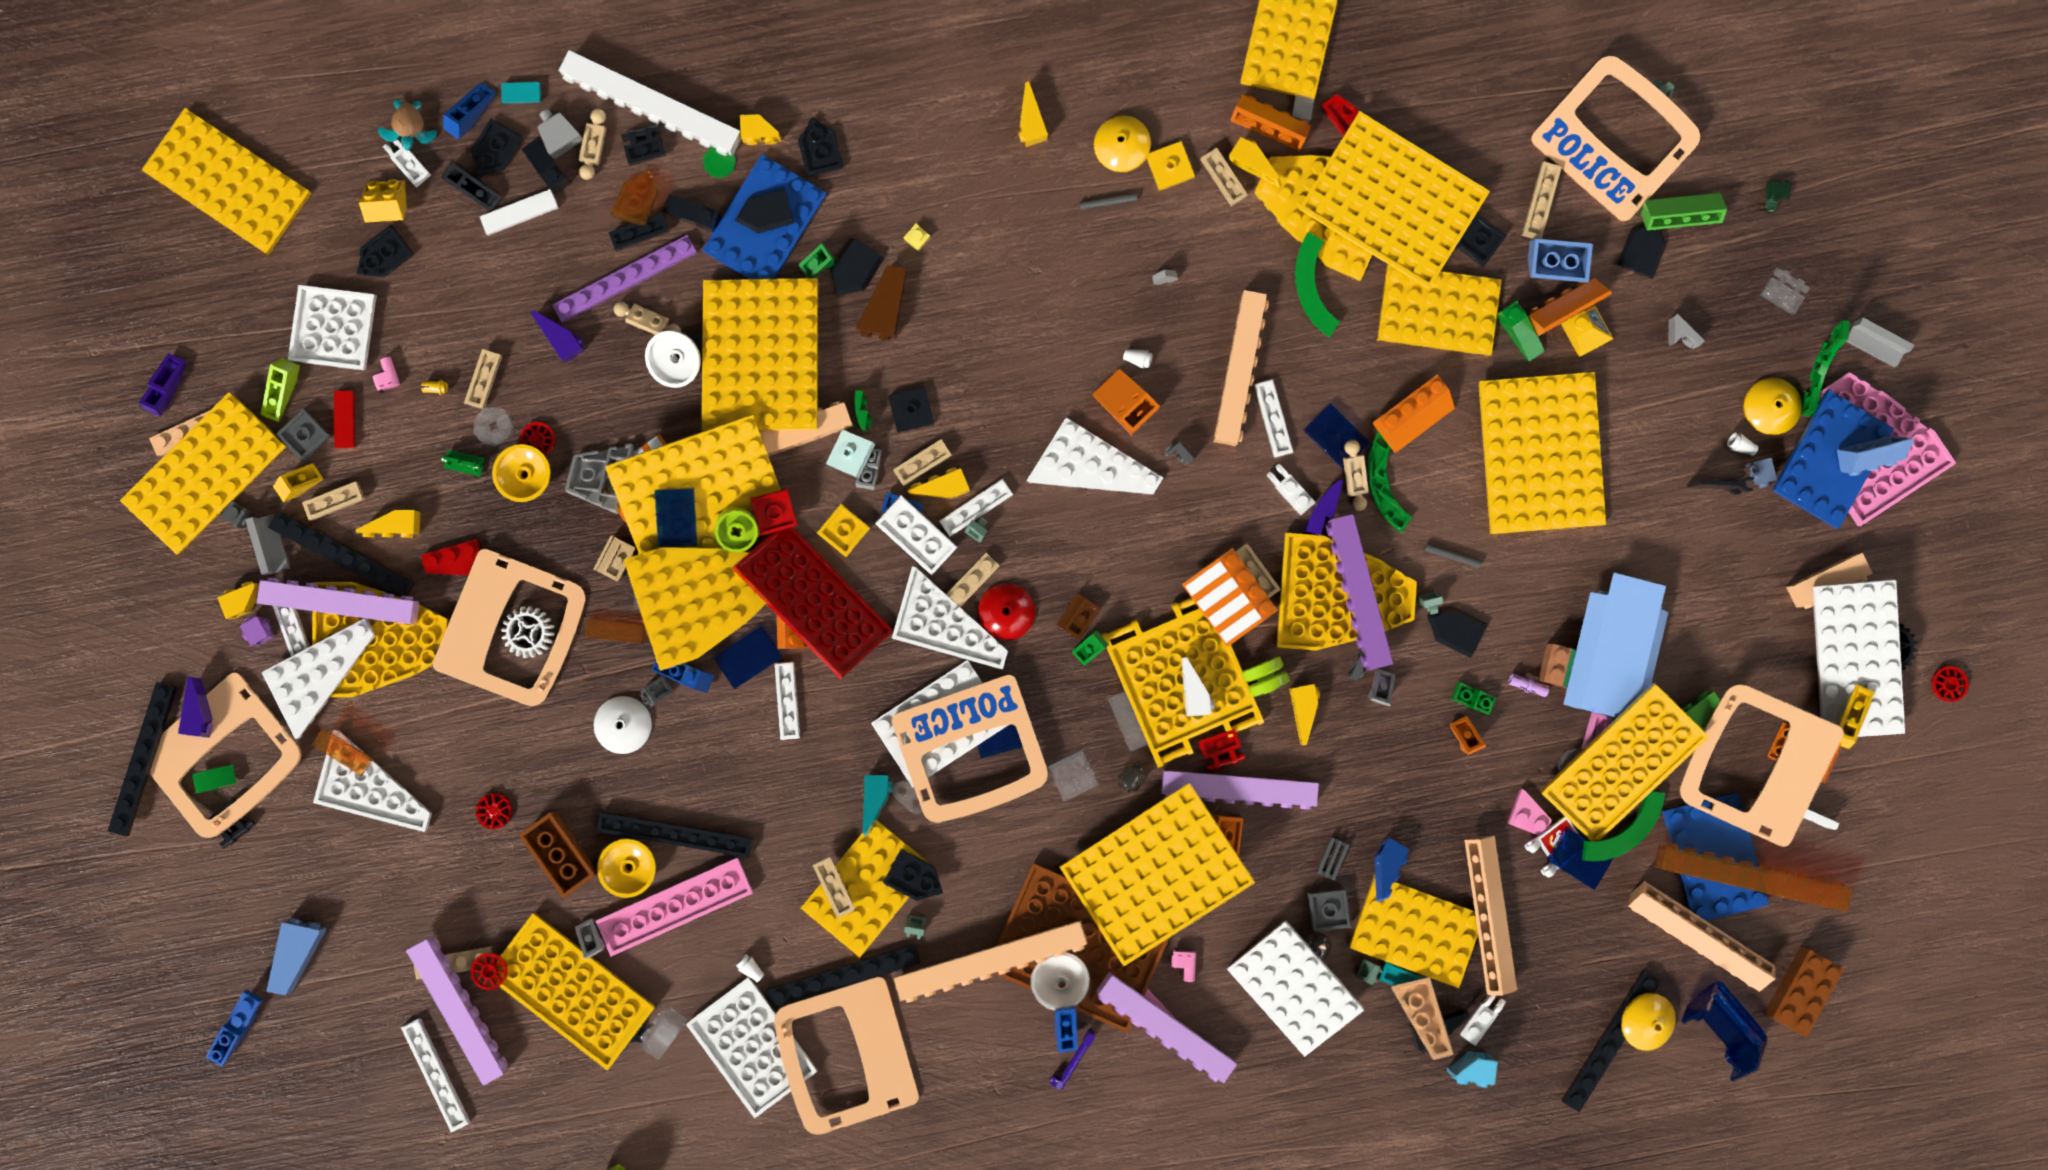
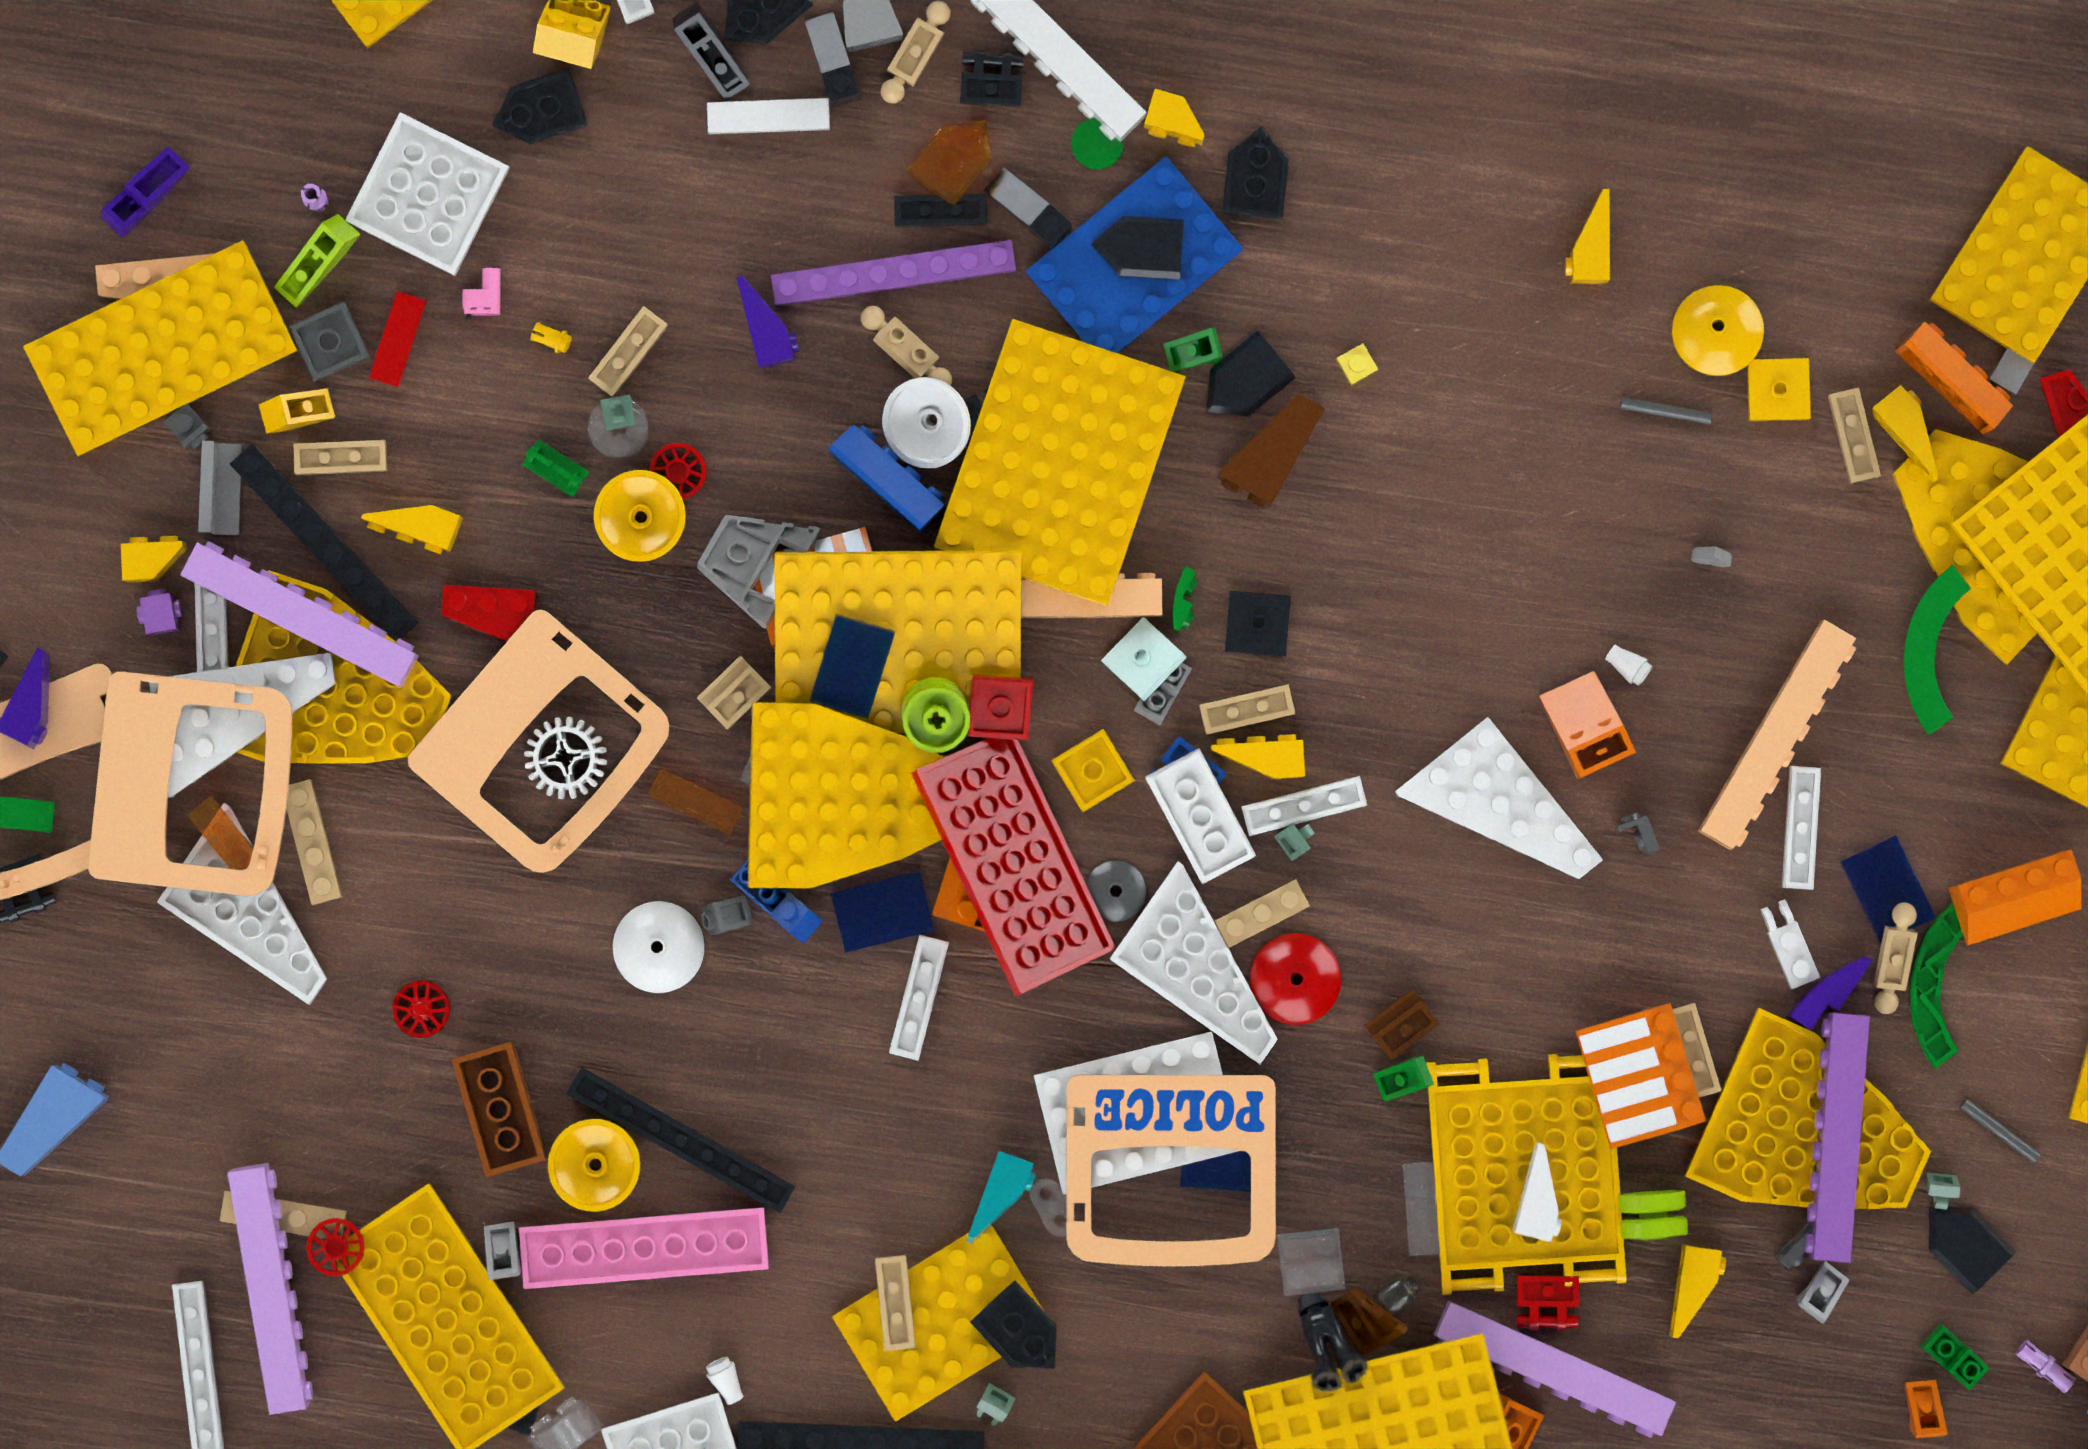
camera: 15 degrees right, 0 degrees up
(263, 352) = (314, 191): none -> lavender pin
(272, 732) = (135, 779): none -> light nougat door
(394, 734) = (312, 843): none -> tan plate
(488, 416) = (618, 412): none -> sand green tile
(661, 400) = (886, 478): none -> blue slope
(892, 596) = (1132, 886): none -> dark grey dish
(1092, 812) = (1323, 1326): none -> black piece
(1118, 799) = (1366, 1320): none -> reddish brown wing

